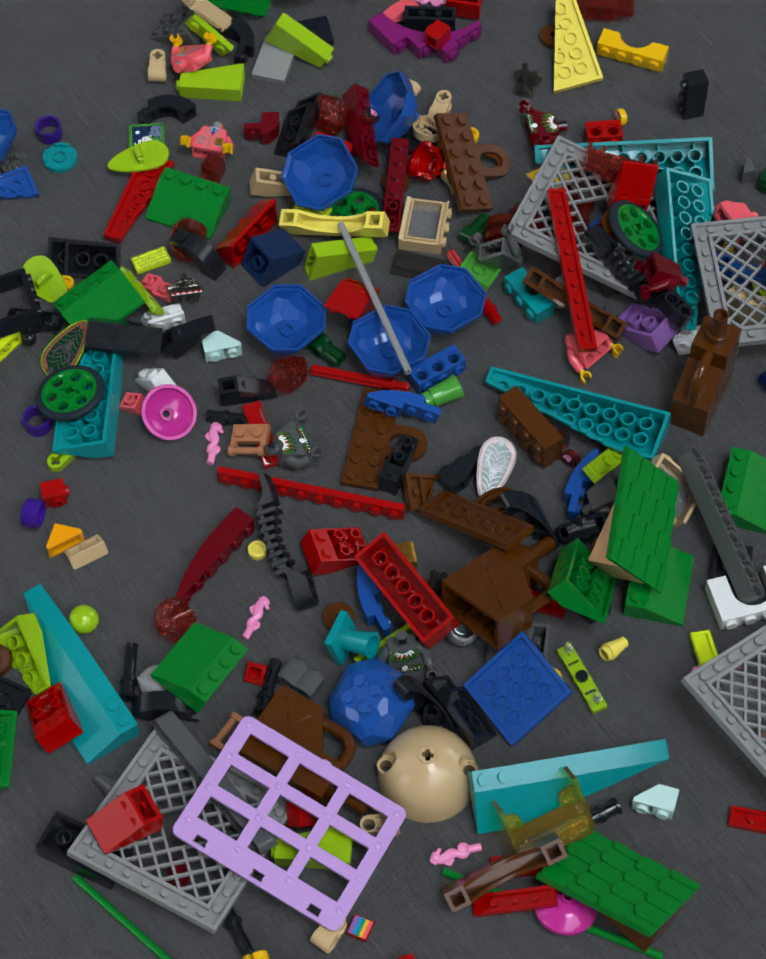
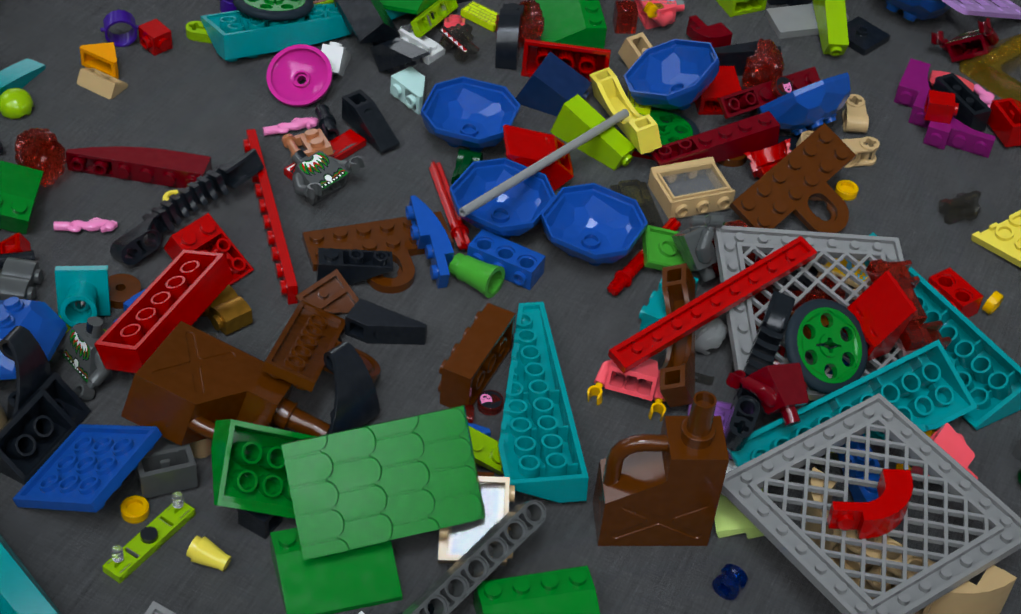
camera: 55 degrees right, 15 degrees down
(288, 373) = (396, 143): clear red hair -> none
(494, 464) = (406, 345): shield -> none
(541, 126) = (913, 234): dark red torso -> none

